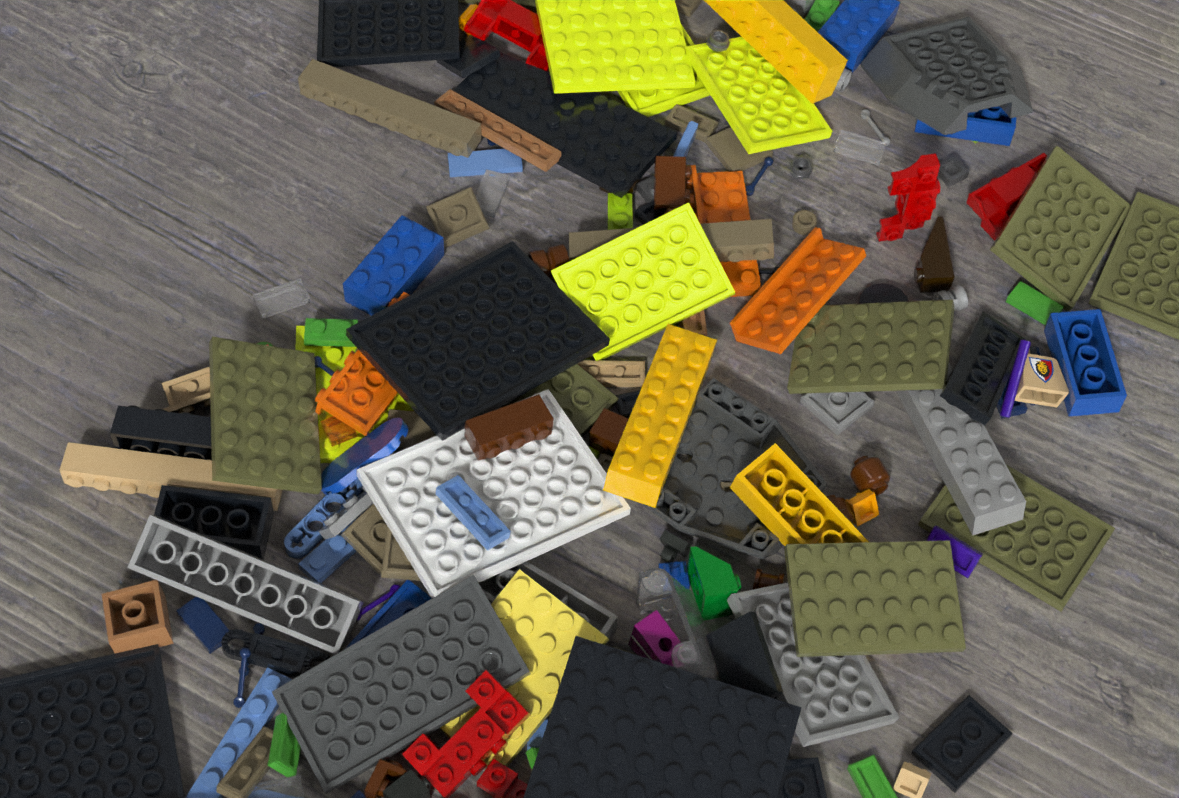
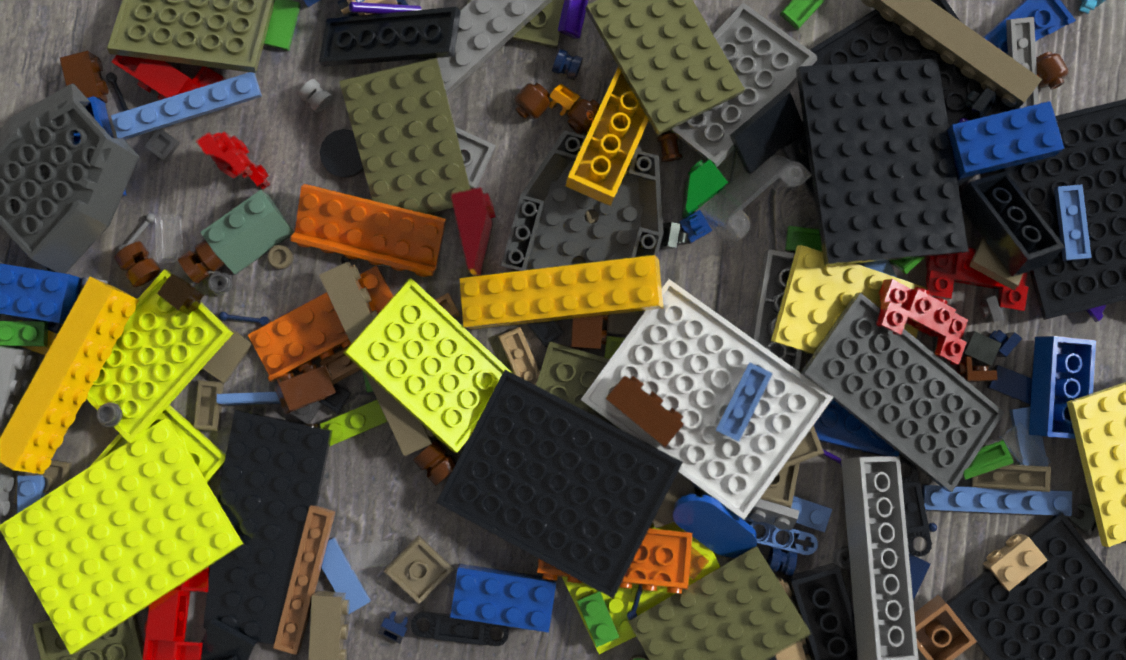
camera: 105 degrees left, 30 degrees up
(162, 728) = (1015, 561): none -> tan bracket
(239, 701) = (957, 517): dark blue hinge -> none
(292, 511) = (782, 561): none -> dark blue wheel
(384, 222) = (457, 630): none -> black plate
(415, 178) = (393, 630): none -> dark blue tile
(654, 639) = (772, 210): magenta torso -> none
(755, 355) = (474, 219): none -> dark red slope
(802, 125) = (180, 294): none -> dark brown brick
(827, 159) = (200, 262): none -> reddish brown wheel
(840, 203) = (247, 232): none -> sand green slope
(847, 112) = (137, 264): none -> reddish brown wheel
(896, 523) = (567, 64): none -> dark blue wheel
(935, 265) = (281, 122): dark brown slope -> none
(978, 191) = (186, 106): none -> medium blue plate
(992, 159) = (111, 77): none -> black hinge
(1037, 134) = (85, 72): none -> reddish brown brick

